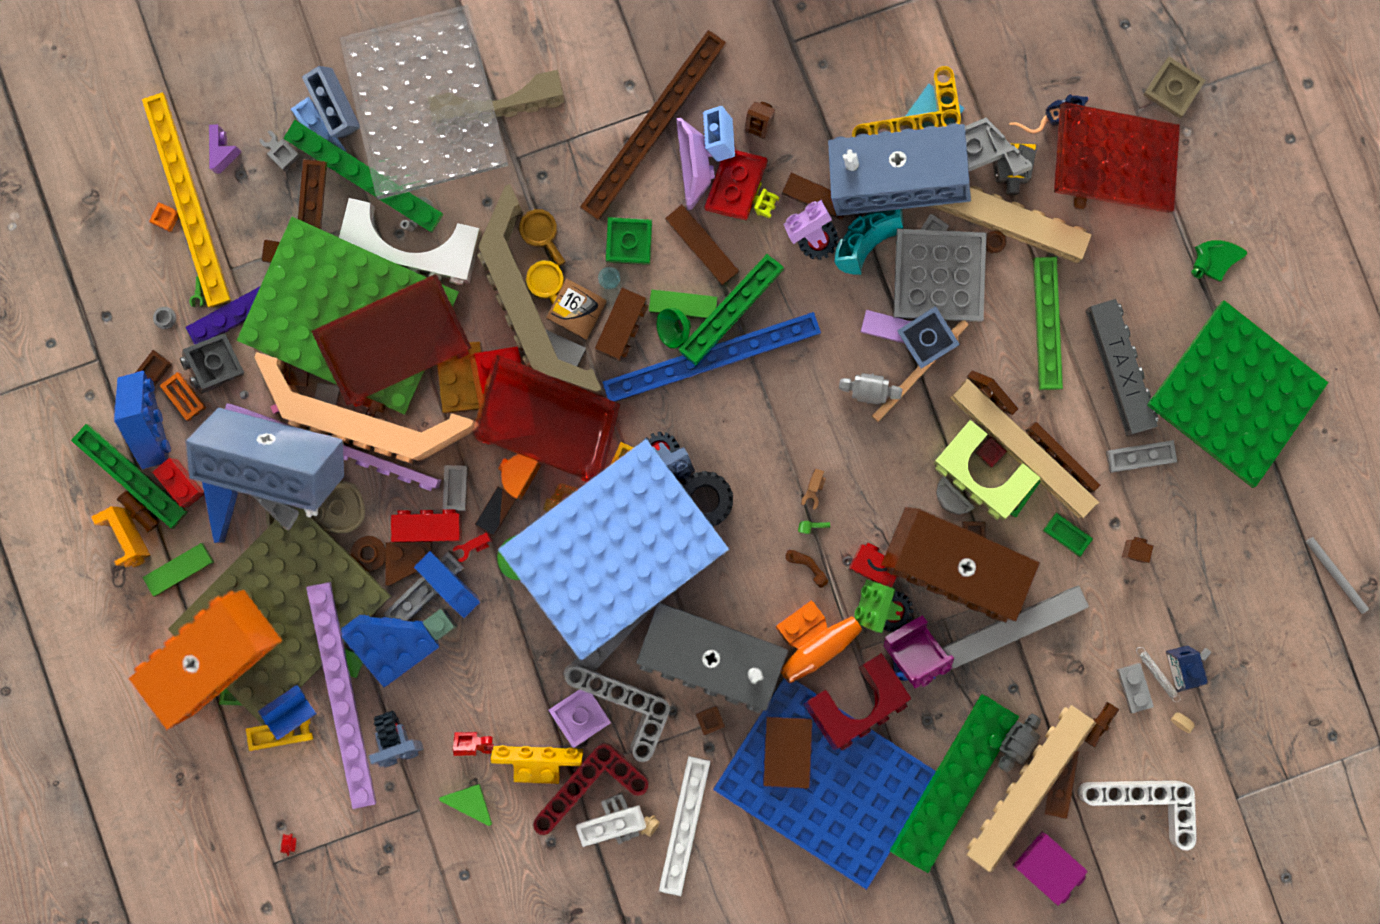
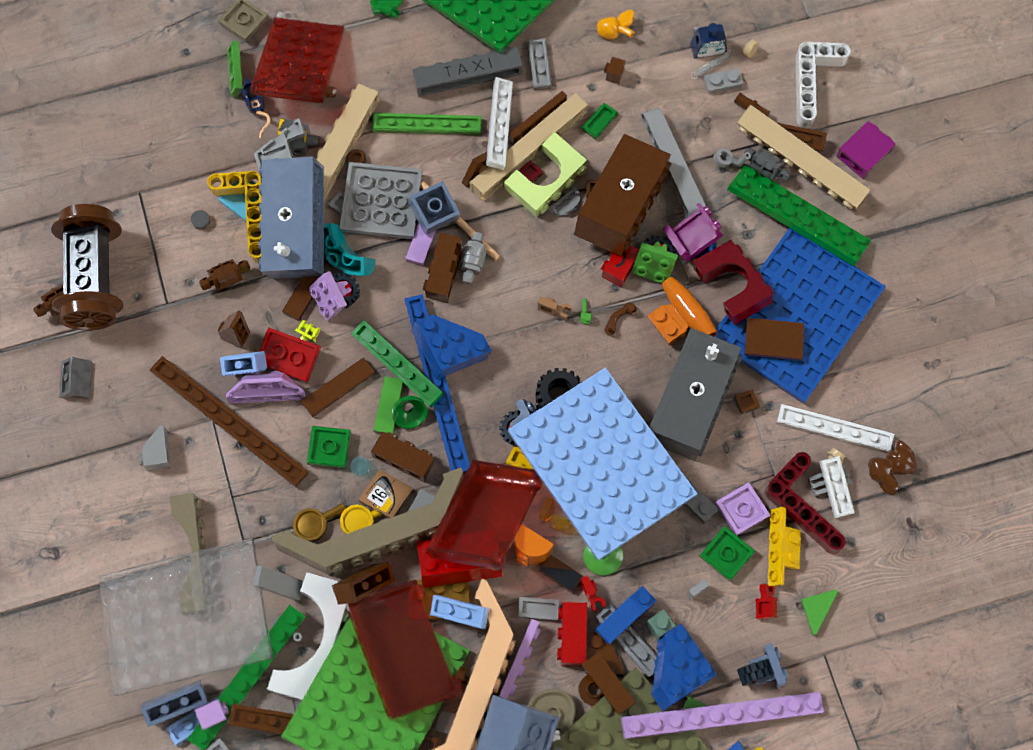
camera: 85 degrees left, 15 degrees down
(315, 141) = (212, 714): none -> lavender brick
(367, 567) = (608, 683): none -> reddish brown tile
(438, 398) = (459, 611): none -> light blue tile
(462, 197) = (278, 583): none -> light grey tile
(465, 290) = (363, 583): none -> reddish brown brick
(483, 666) = (697, 589): none -> light grey tile
(526, 698) = (727, 553): none -> green plate
(613, 50) = (156, 451): none -> light grey slope
(625, 700) = (726, 466): light grey beam -> none
(643, 900) = (899, 461): none -> reddish brown animal
(755, 367) = (449, 345): none -> blue brick
(829, 101) = (224, 275): none -> reddish brown piece
(853, 354) = (443, 268): none -> reddish brown wedge
(901, 66) = (200, 219): none -> dark grey tile
(1025, 696) = (728, 158): none -> light grey plate
(1050, 410) = (499, 123): none -> white tile
(1103, 84) = (234, 69): none -> bright green tile
(1199, 543) = (609, 27): none -> light orange piece

